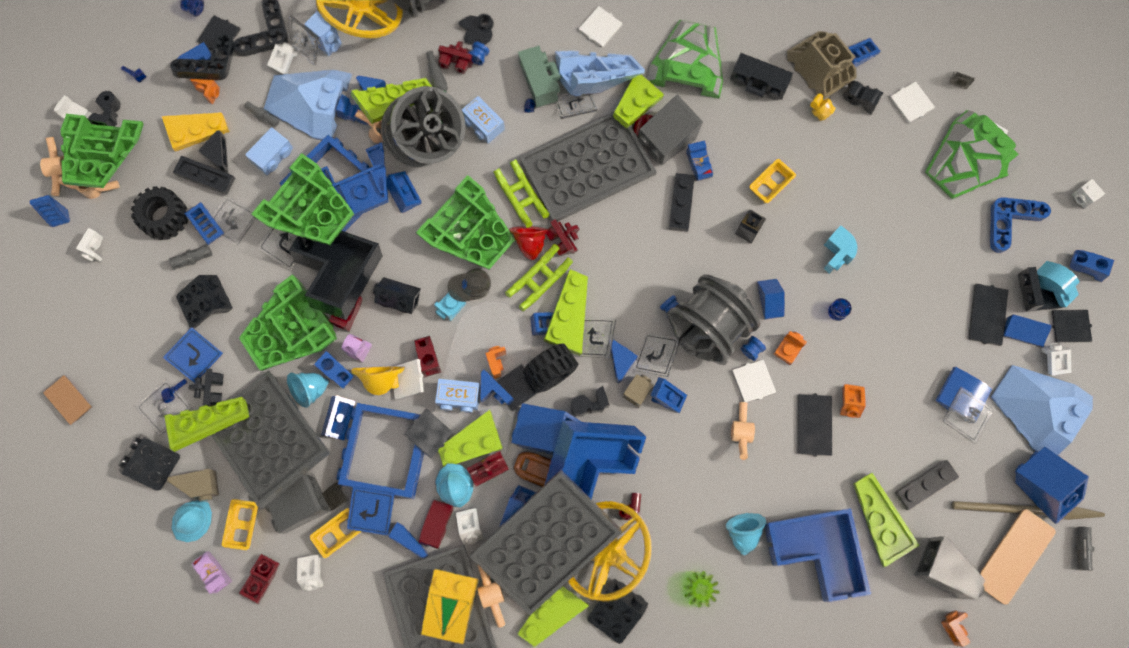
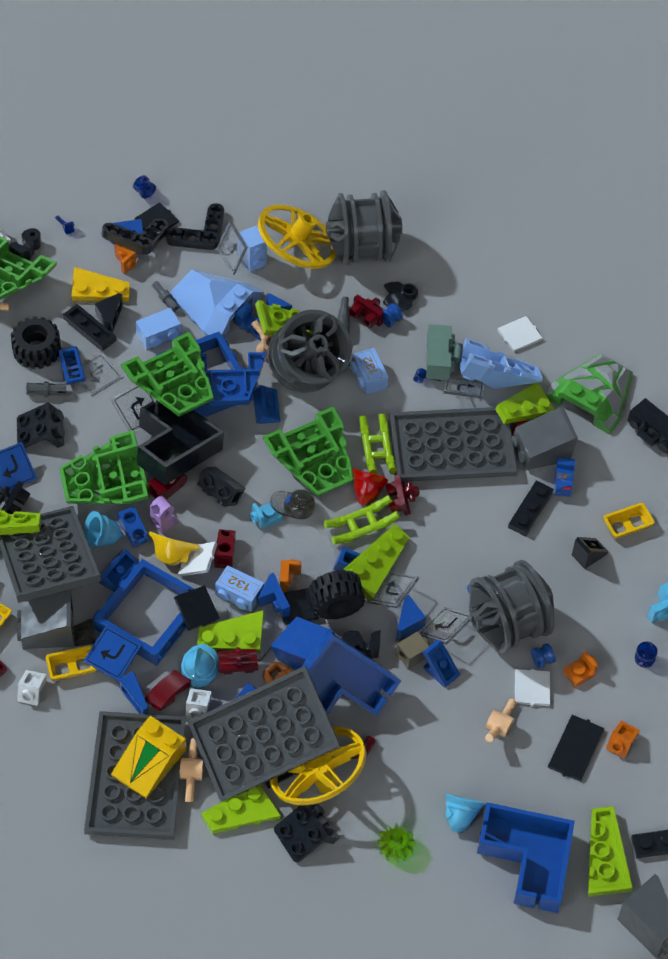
camera: 20 degrees right, 20 degrees down
(282, 57) = (205, 256): white bracket -> none
(772, 298) = (581, 622): blue slope -> none

